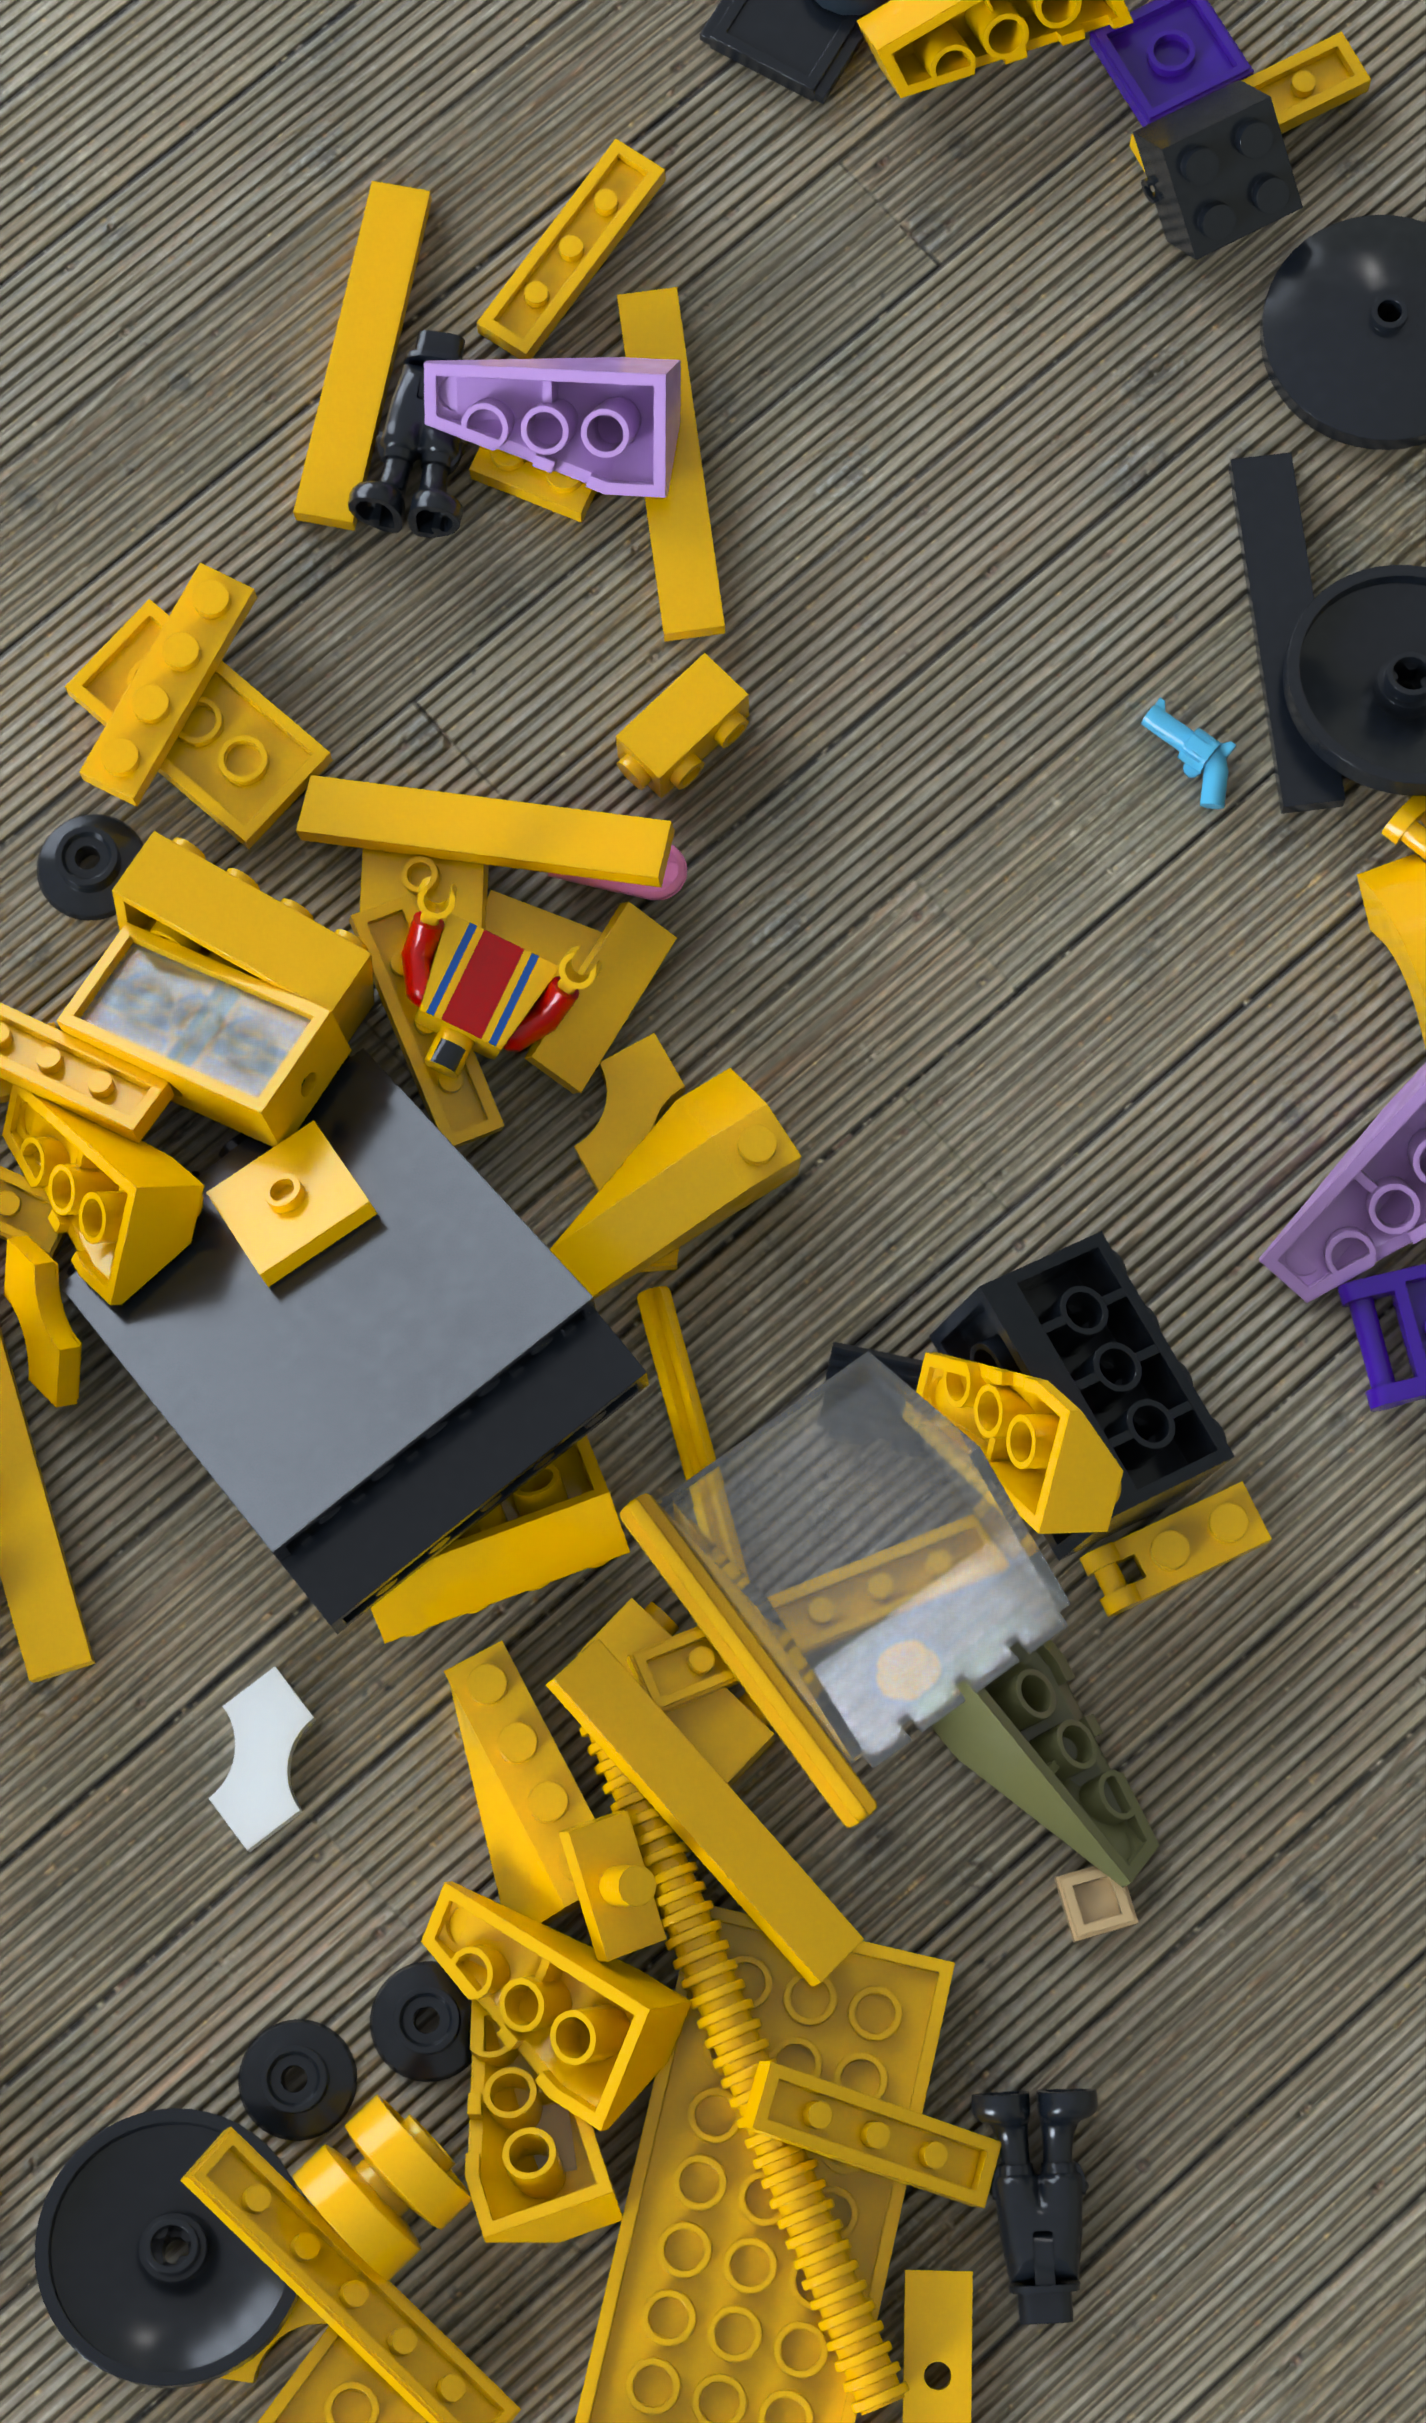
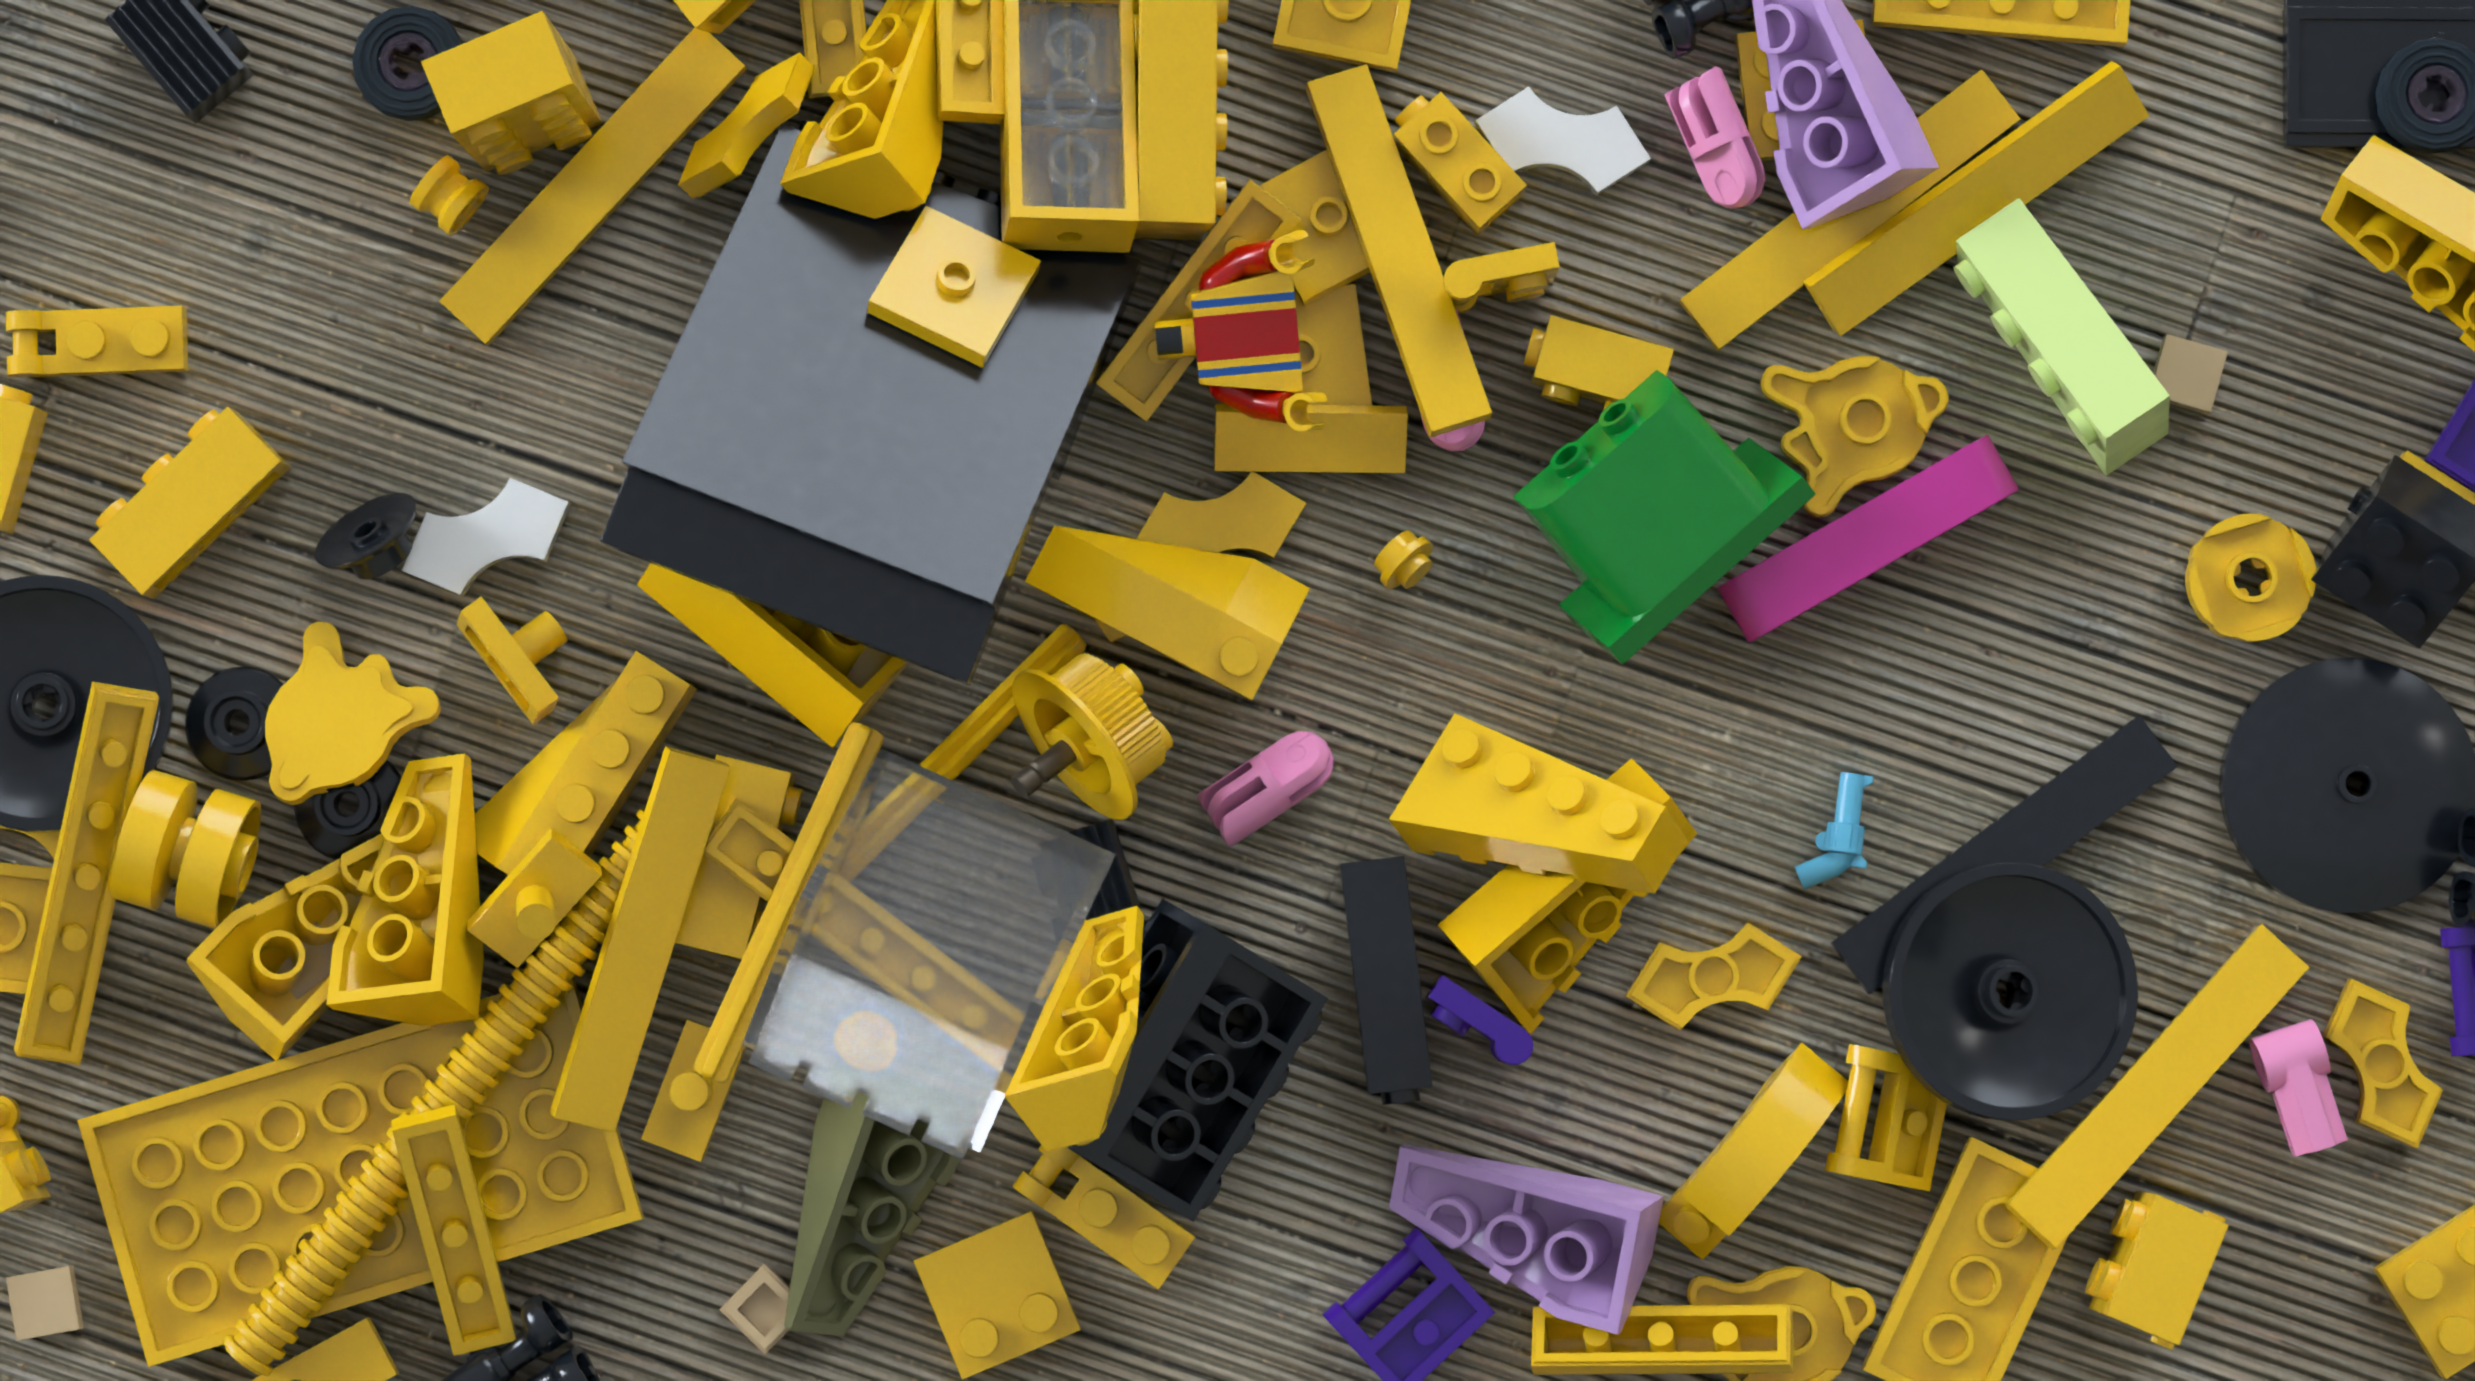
camera: 60 degrees right, 10 degrees up
(69, 2008) = (187, 501): none -> yellow brick
(200, 1859) = (370, 537): none -> black piece
(348, 1983) = (338, 720): none -> yellow tile
(383, 1791) = (515, 655): none -> yellow tile
(439, 746) = (1457, 161): none -> yellow brick
(453, 678) = (1591, 147): none -> white tile
(548, 530) = (1718, 139): none -> bright pink arm
(559, 748) = (1516, 272): none -> yellow plate
(721, 358) = (2011, 169): none -> yellow tile
(748, 1316) = (1089, 733): none -> yellow piece
(752, 977) = (1404, 560): none -> yellow plate
(836, 742) = (1654, 512): none -> green windscreen
(852, 555) = (1854, 422): none -> yellow tile
(866, 1860) = (688, 1101): none -> yellow tile
(879, 1198) = (1267, 785): none -> bright pink arm
(880, 343) = (2063, 336): none -> yellowish green wedge
(956, 593) = (1868, 538): none -> dark pink beam
(966, 274) = (2189, 372): none -> tan tile
(1036, 971) = (1527, 809): none -> yellow wedge
(1105, 1190) = (1386, 978): none -> black brick
(1116, 995) = (1534, 928): none -> yellow wedge
(1158, 346) = (2267, 545): none -> yellow plate
(1197, 1685) = (997, 1295): none -> yellow plate
(1207, 1114) = (1462, 1010): none -> dark purple plate
(1249, 949) = (1743, 969): none -> yellow tile

